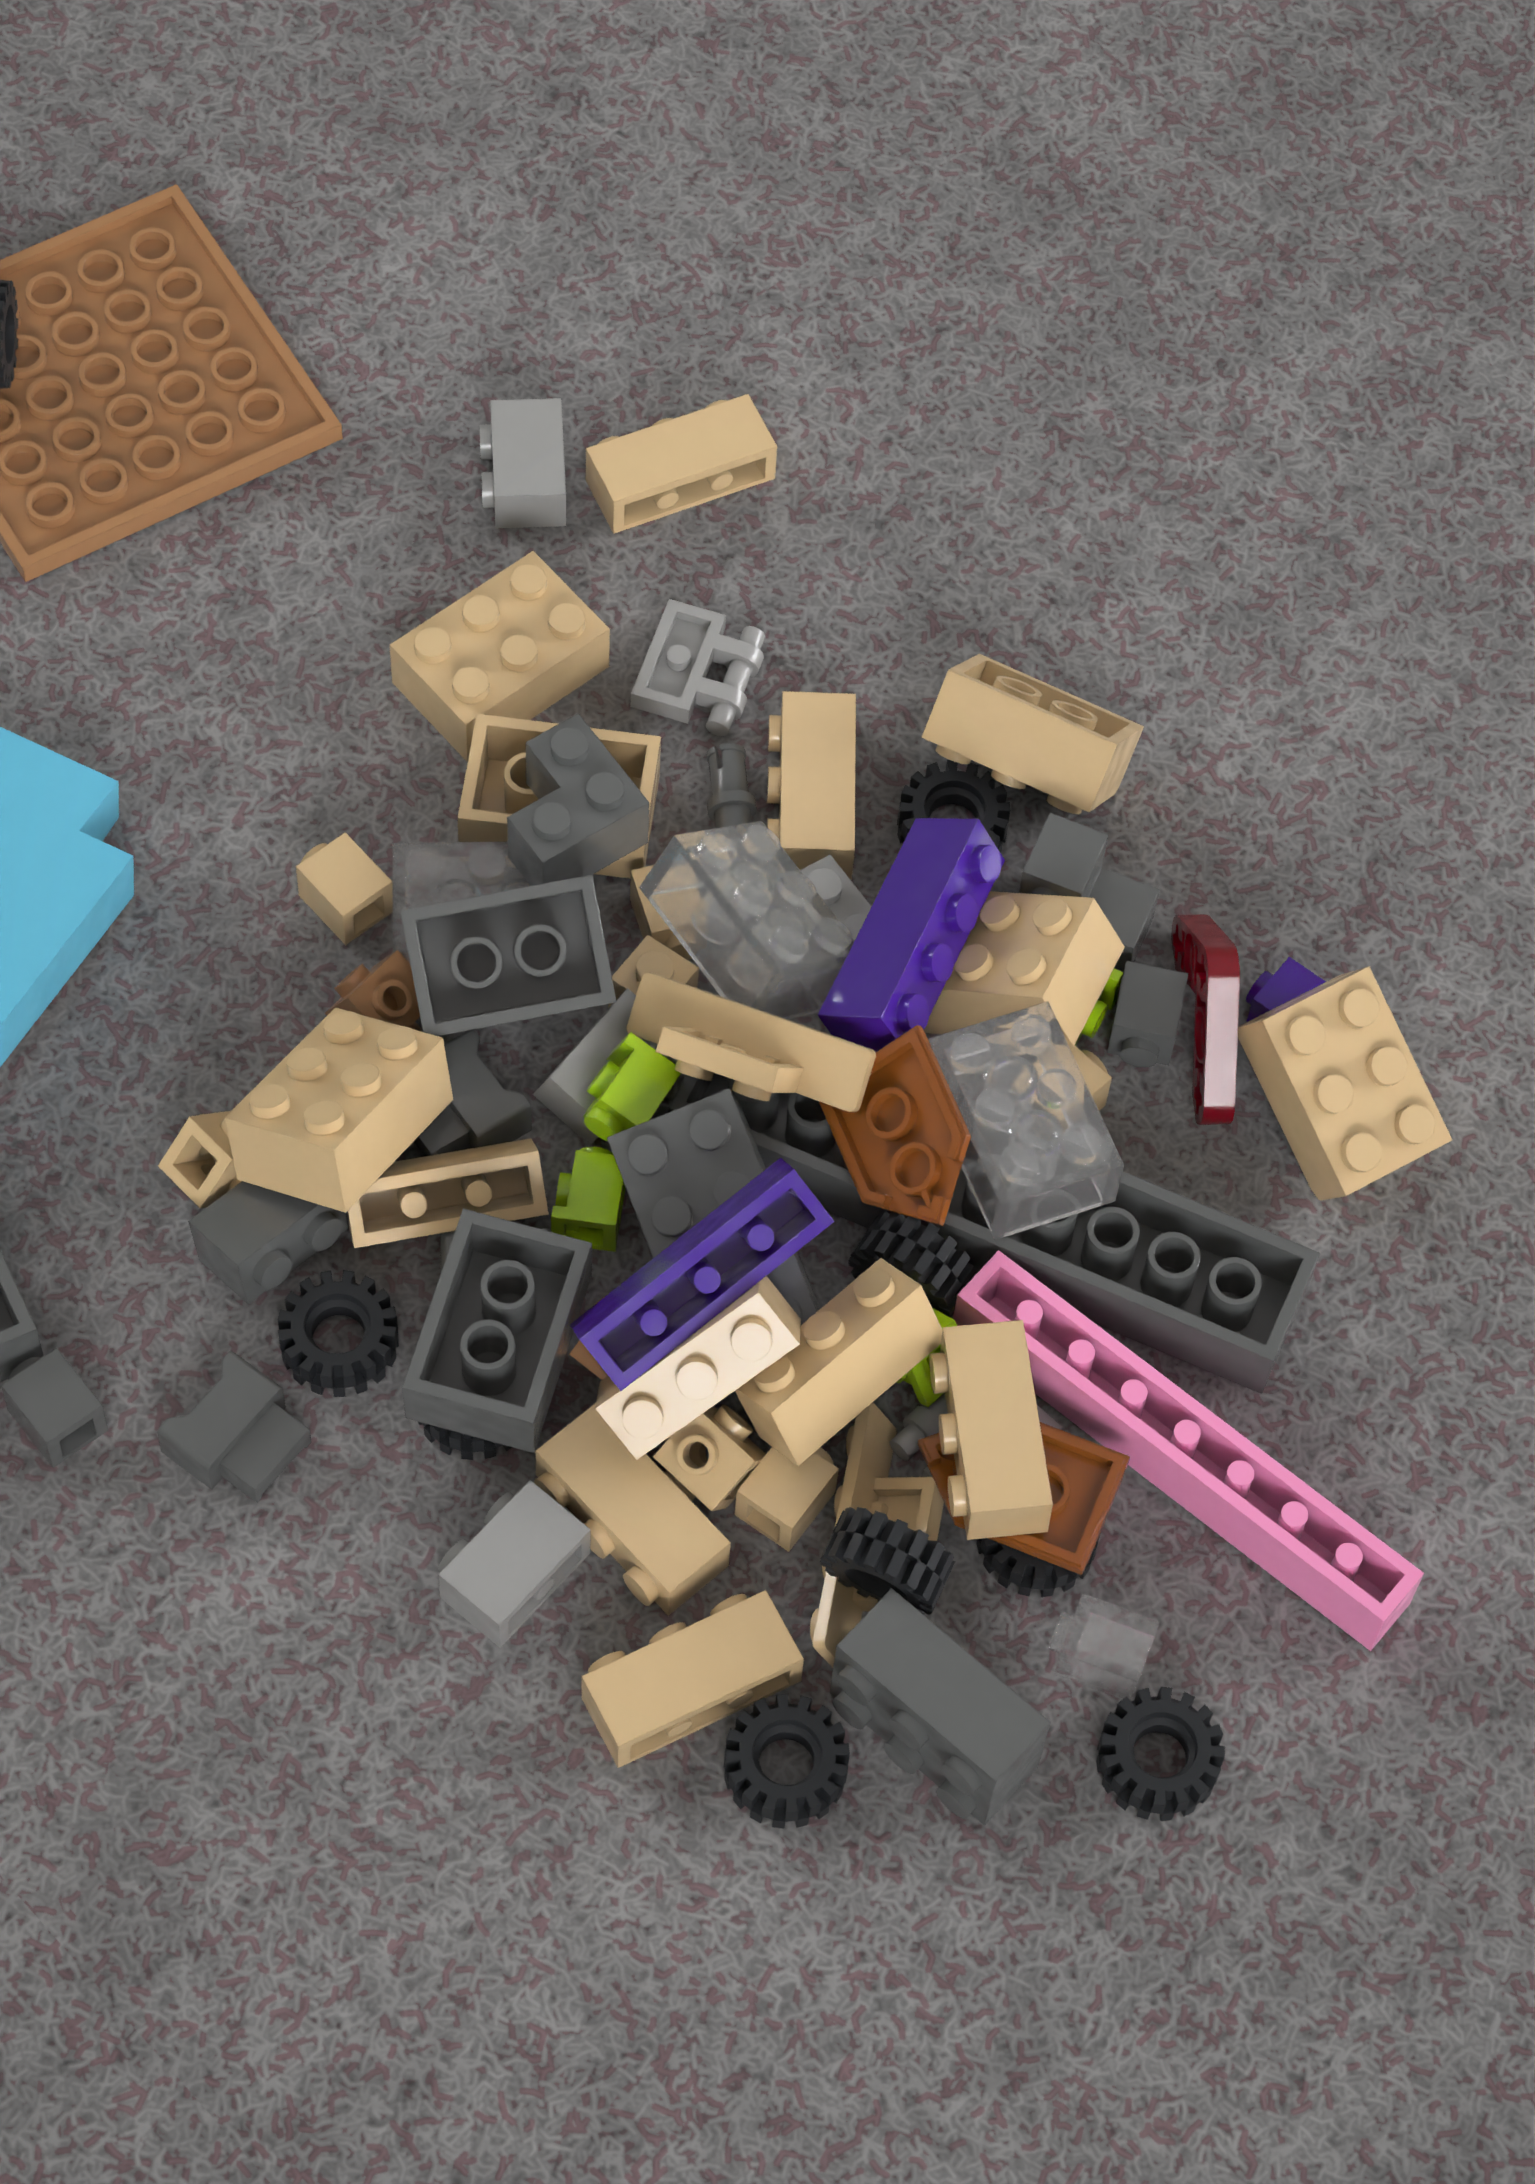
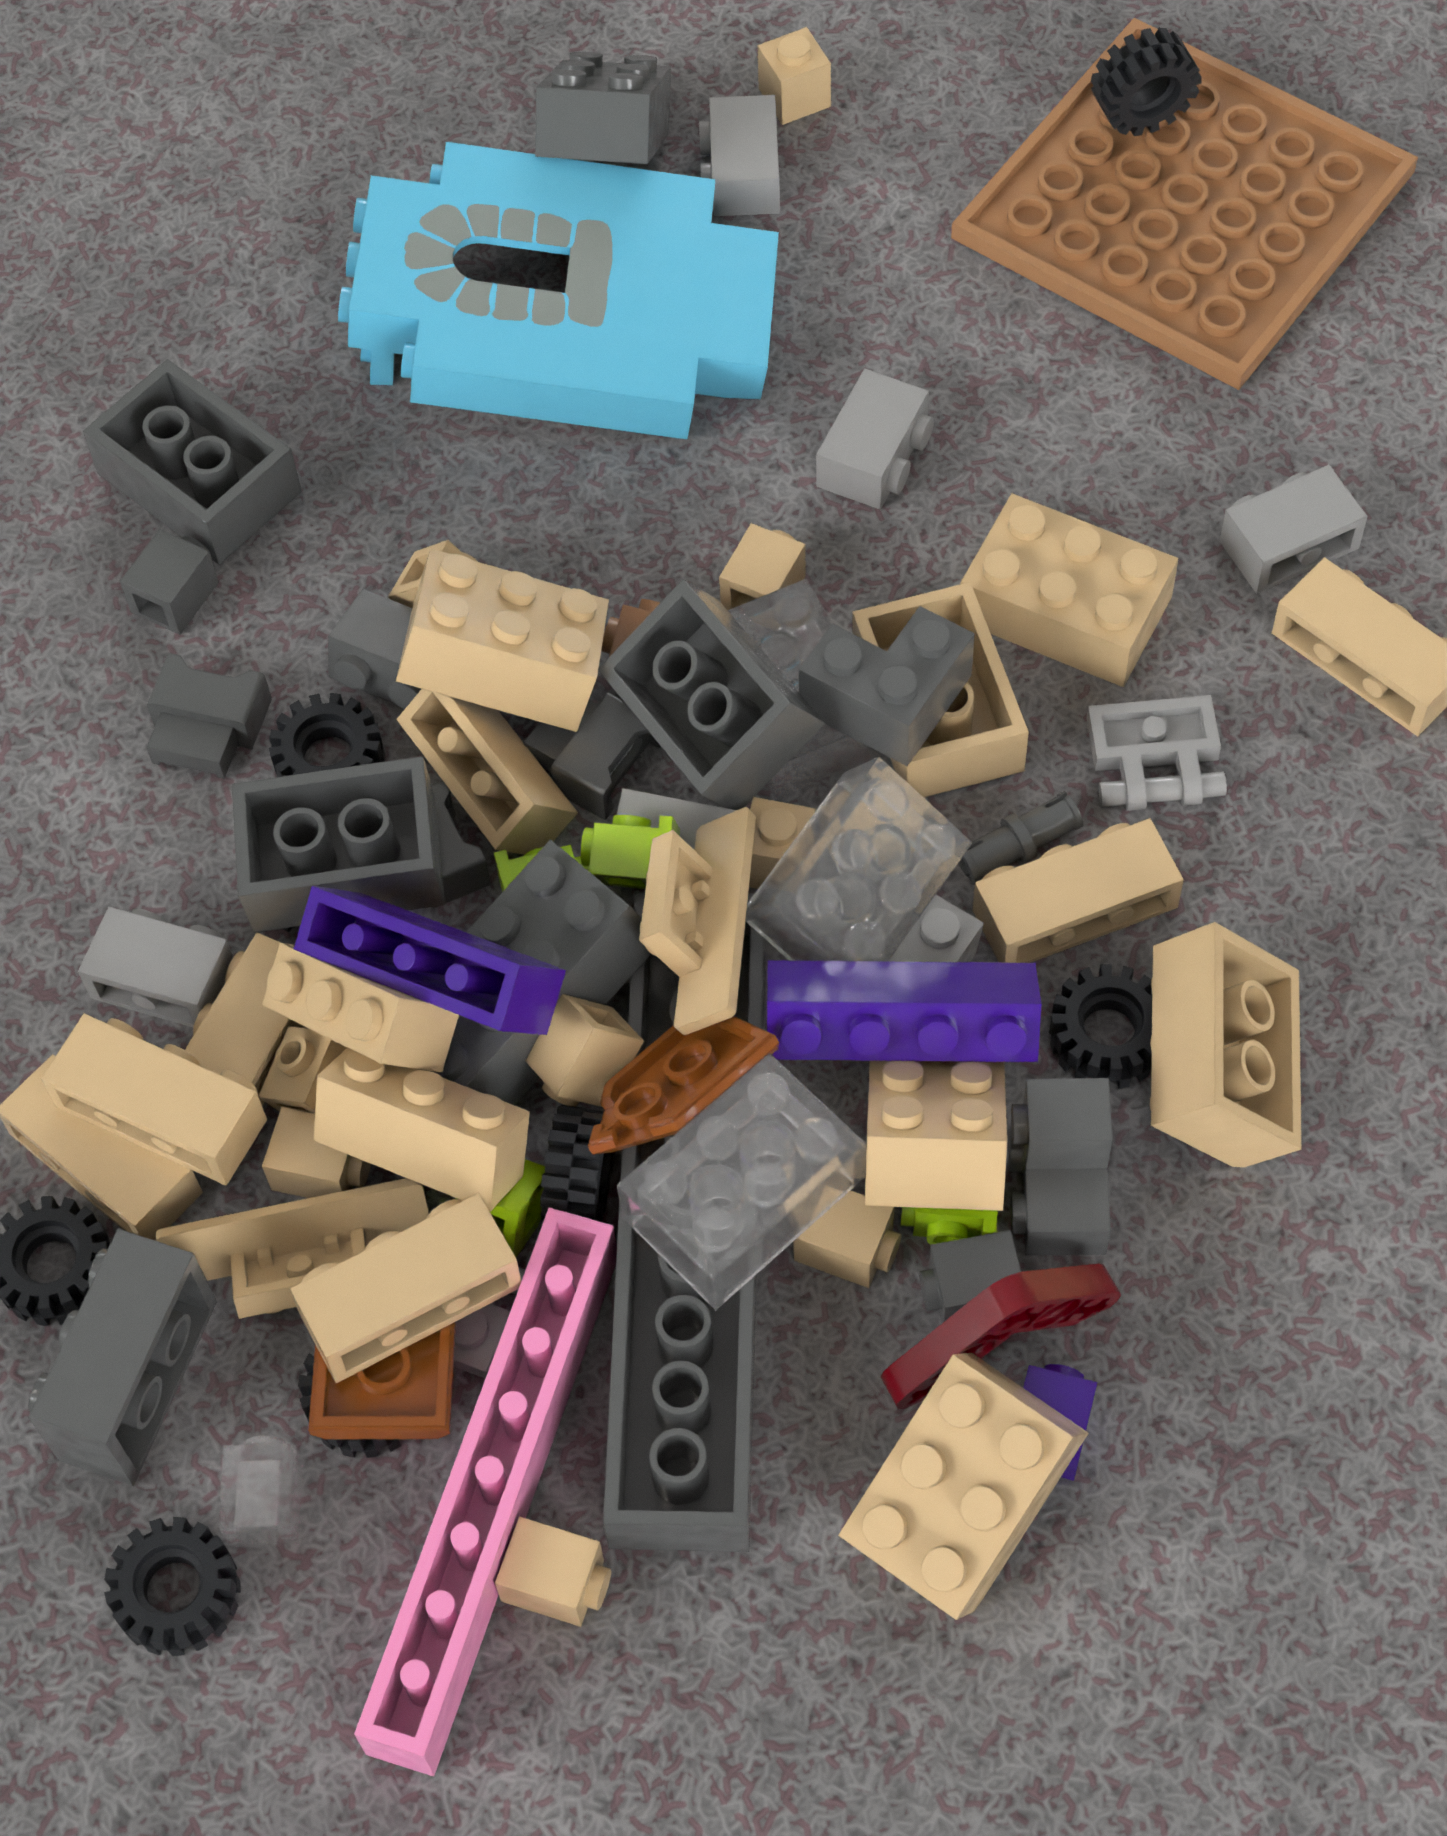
camera: 75 degrees right, 0 degrees up
(240, 736) = (873, 439): none -> light grey brick
(693, 1583) = (156, 1097): none -> tan brick
(834, 1189) = (582, 1050): none -> tan brick
(884, 1555) = (233, 1246): black tyre -> none
(1284, 1425) = (553, 1572): none -> tan brick

